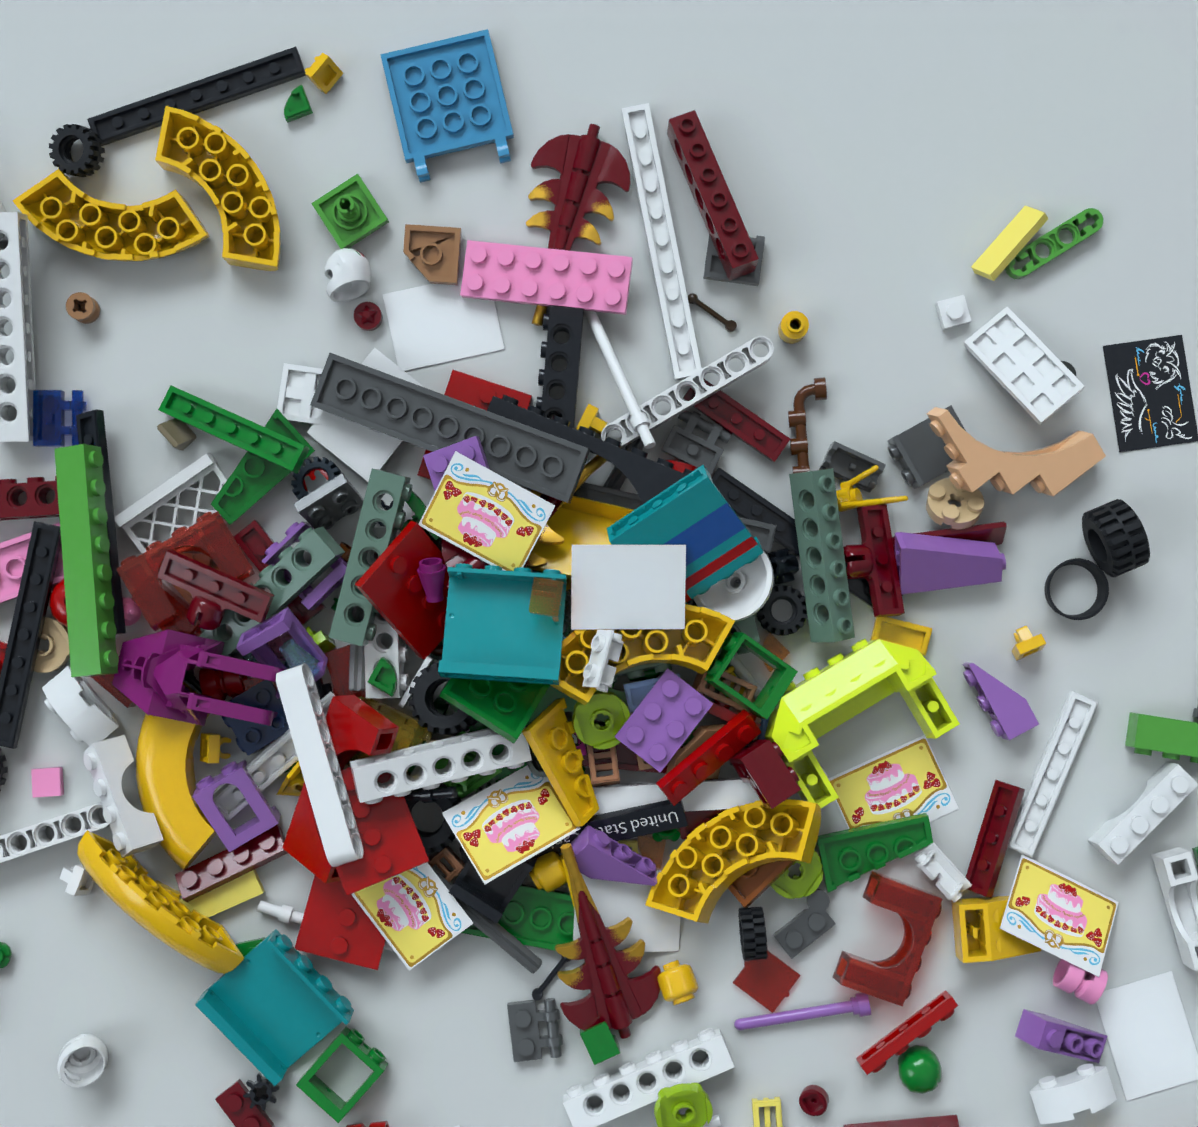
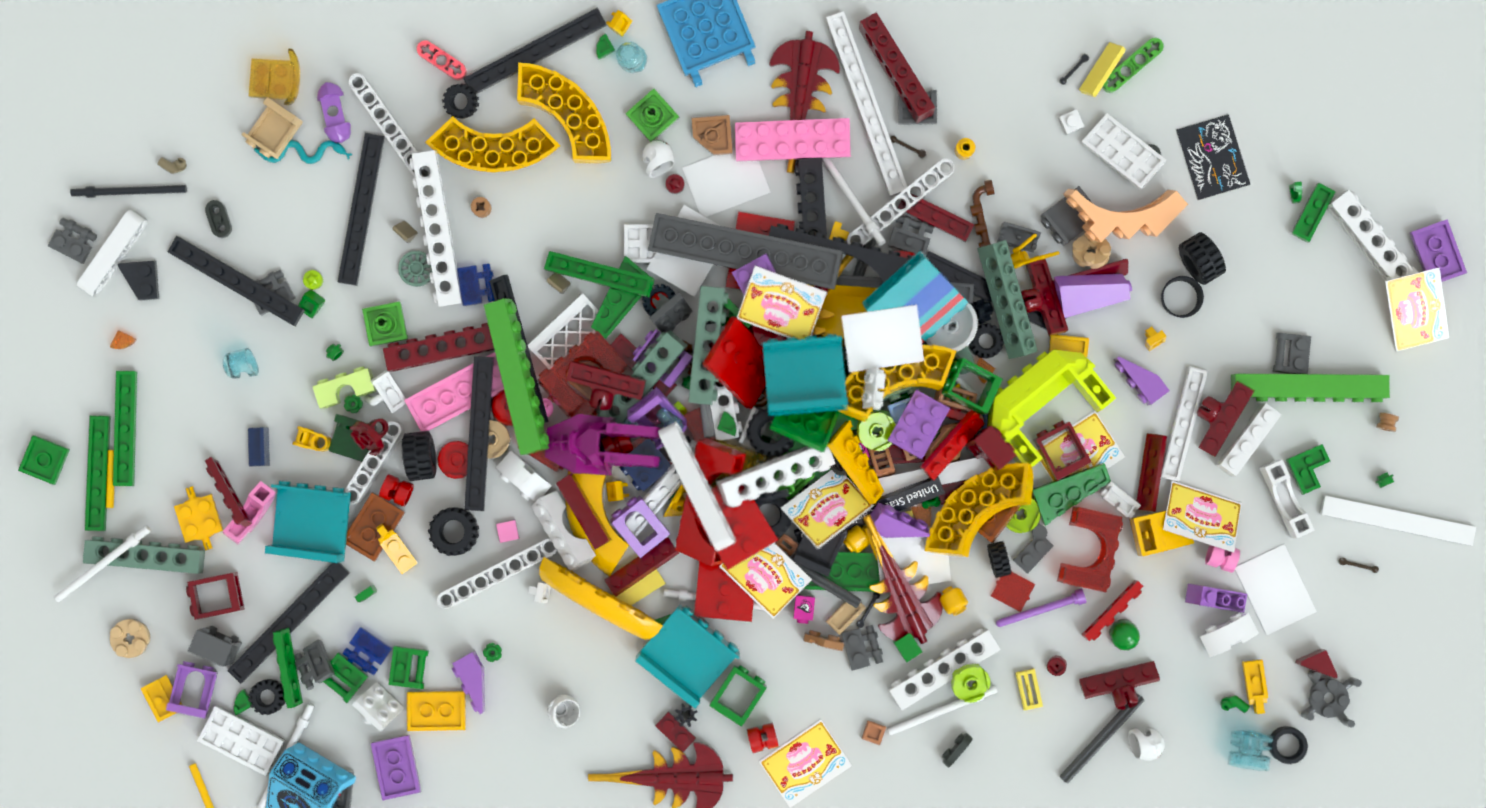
camera: 10 degrees left, 0 degrees up
(56, 78) = (433, 48): none -> coral beam
(156, 772) = (583, 511): none -> dark red slope
(329, 120) = (630, 56): none -> clear light blue helmet
(432, 576) = (751, 352): magenta cone -> none
(457, 961) = (804, 608): none -> dark pink brick
(484, 1018) = (831, 642): none -> medium nougat plate
(515, 981) = (844, 616): none -> tan tile
(546, 597) = (831, 353): clear orange panel -> none
(881, 812) = (1070, 468): none -> dark red window
(985, 223) = (1084, 58): none -> black hinge
(1111, 773) = (1222, 416): none -> dark red plate

